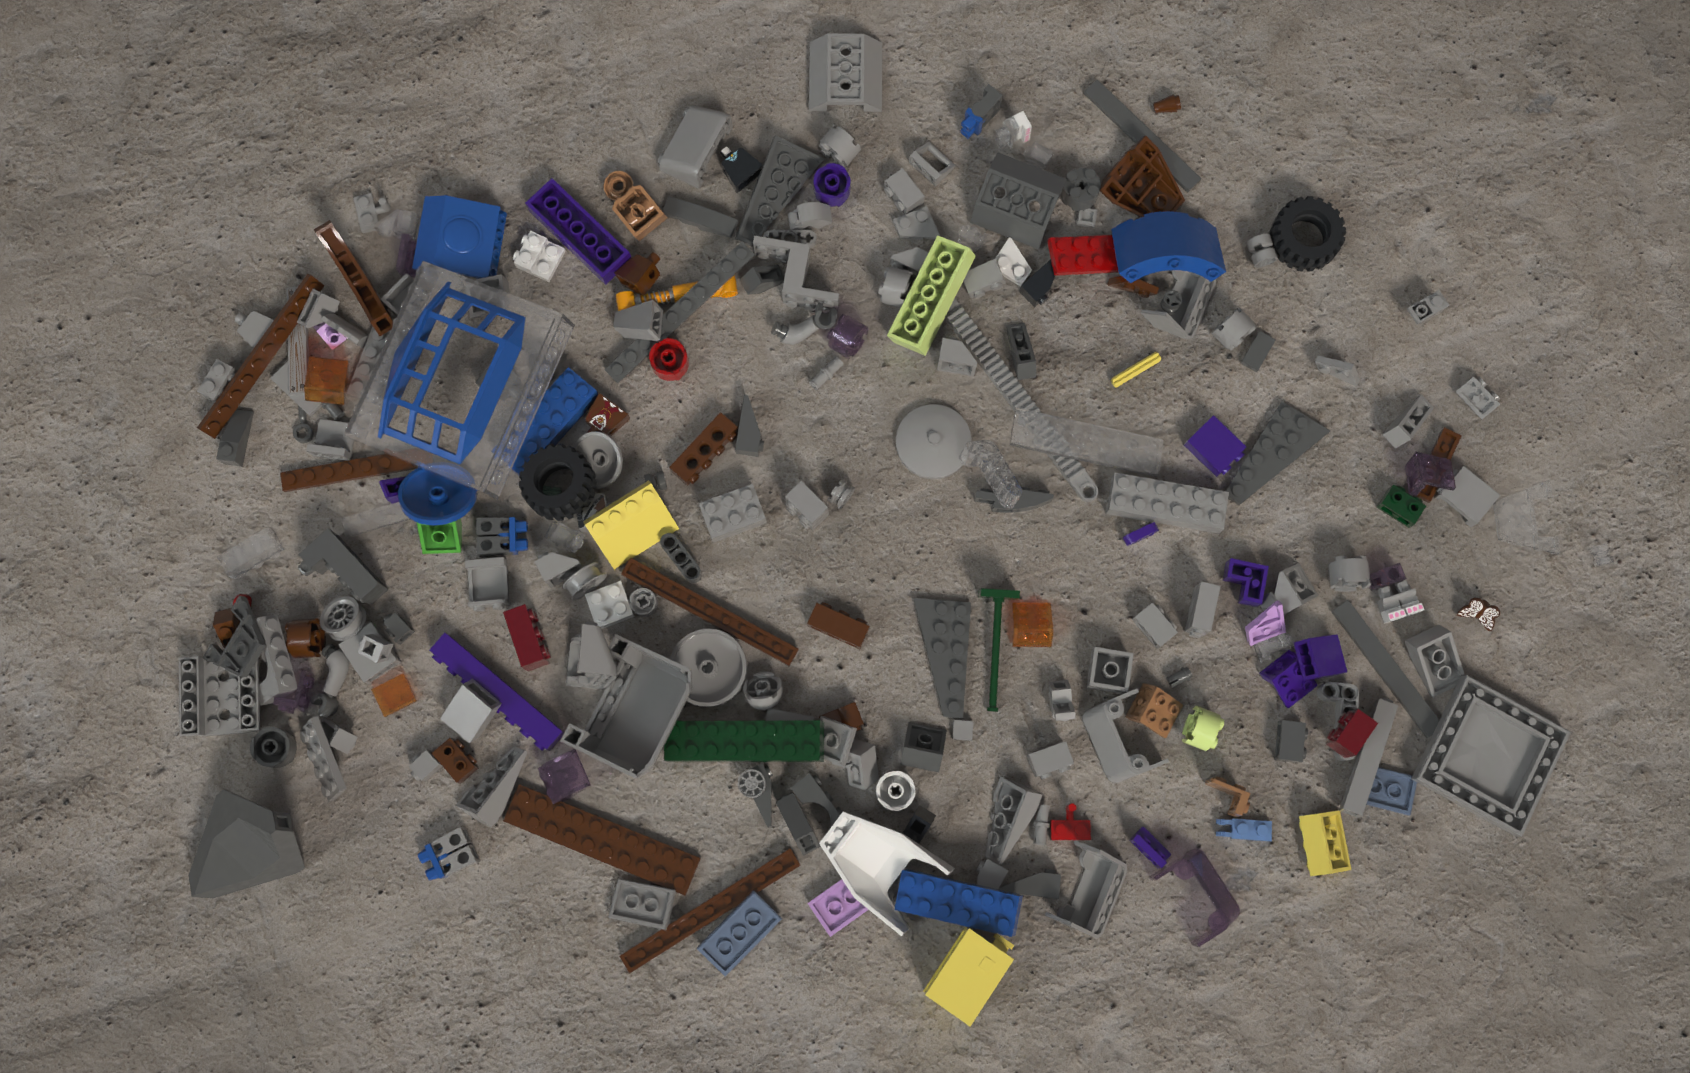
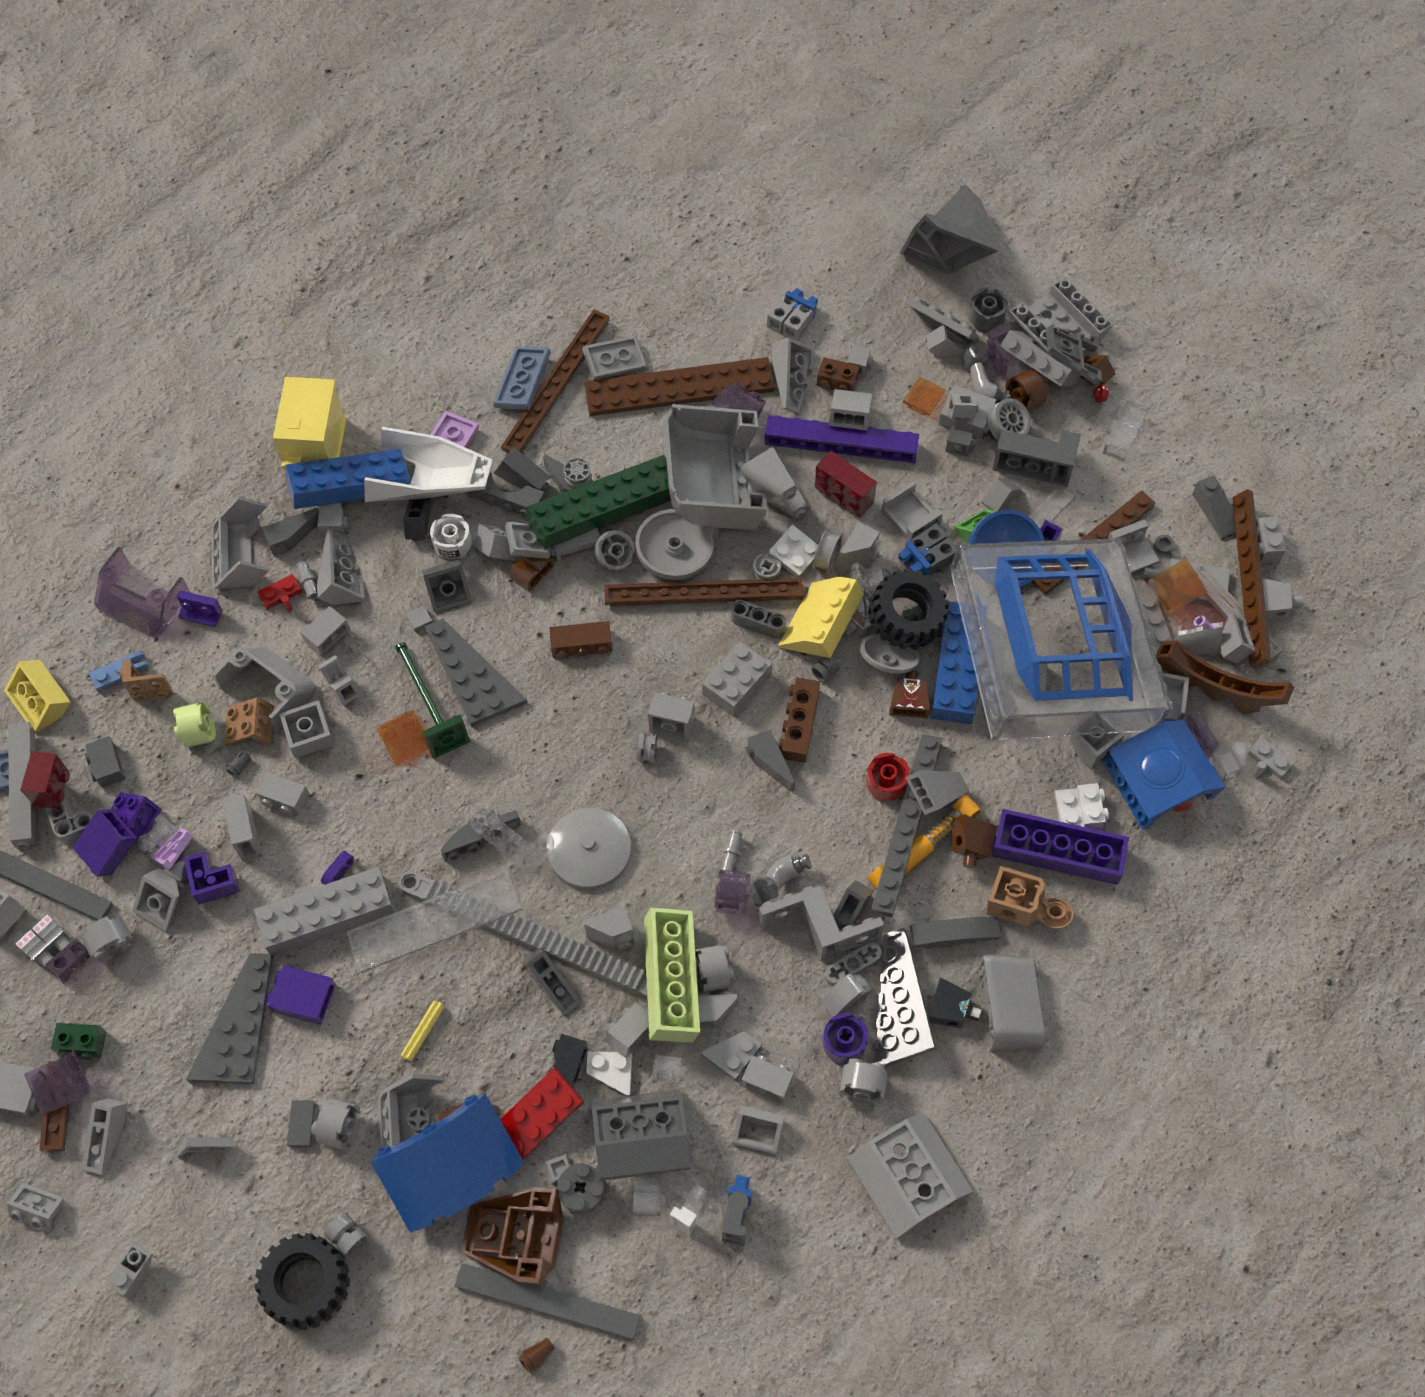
camera: 150 degrees right, 15 degrees down
(399, 557) = (1000, 494): none -> light grey slope

